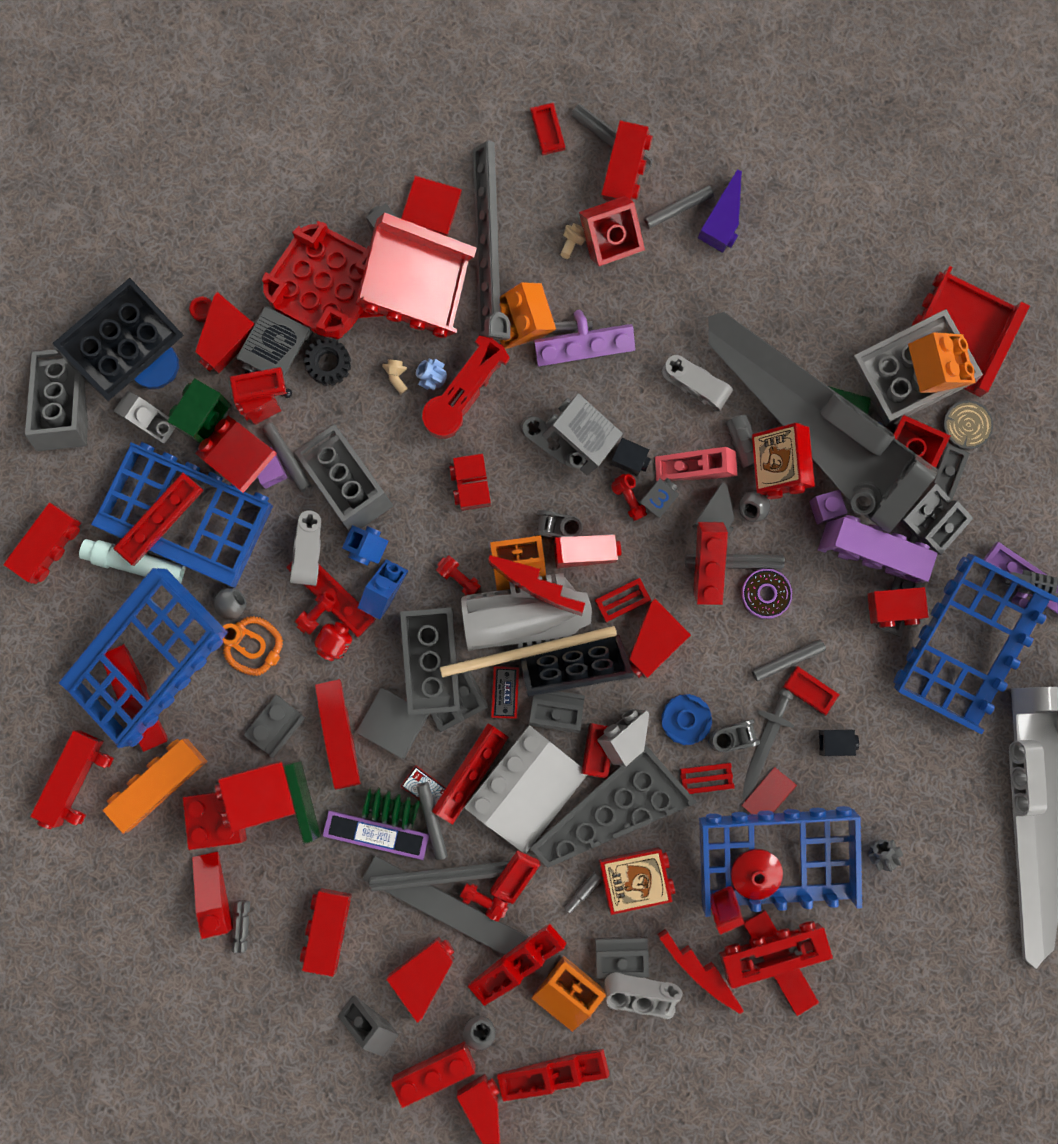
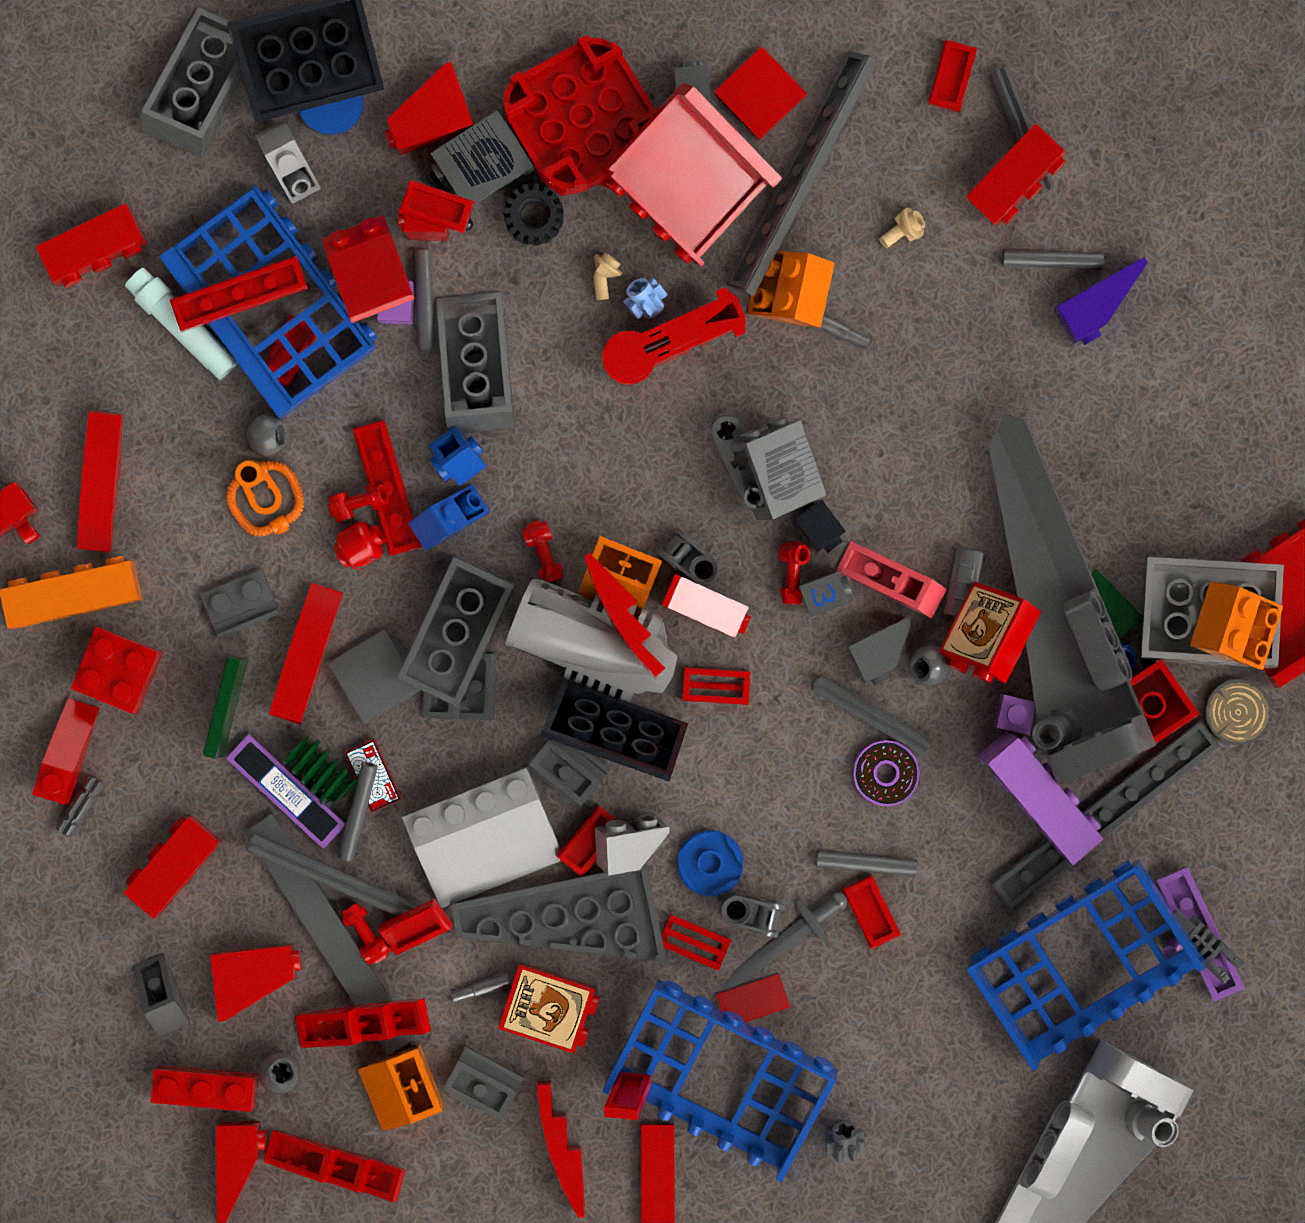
camera: 35 degrees right, 5 degrees up
(177, 679) = (118, 396): blue window -> none
(198, 411) = (351, 193): dark green brick -> none
(199, 308) = (421, 66): red tile -> none
(216, 526) = (300, 338): none -> red tile
(255, 796) = (178, 672): red slope -> none
(306, 549) = (386, 424): light grey piece -> none
(467, 470) = (626, 436): red piece -> none
(470, 774) = (430, 783): red tile -> none
(497, 326) = (752, 287): dark grey tile -> none
(505, 692) = (521, 714): tile -> none
(528, 651) = (573, 684): tan piece -> none
(584, 343) = (845, 361): medium lavender plate -> none
(612, 230) = (952, 248): red brick -> none
(641, 995) = (481, 1136): light grey piece -> none
(656, 640) = (726, 754): red slope -> none
(697, 382) = (950, 484): light grey piece -> none
(710, 563) = (837, 702): red brick -> none
(751, 864) = (692, 1065): red dish -> none
(761, 946) = (672, 1165): red brick -> none
(838, 742) = (866, 987): black brick -> none
(898, 605) = (1024, 873): red brick -> none
(936, 518) = (1131, 799): dark grey slope -> none

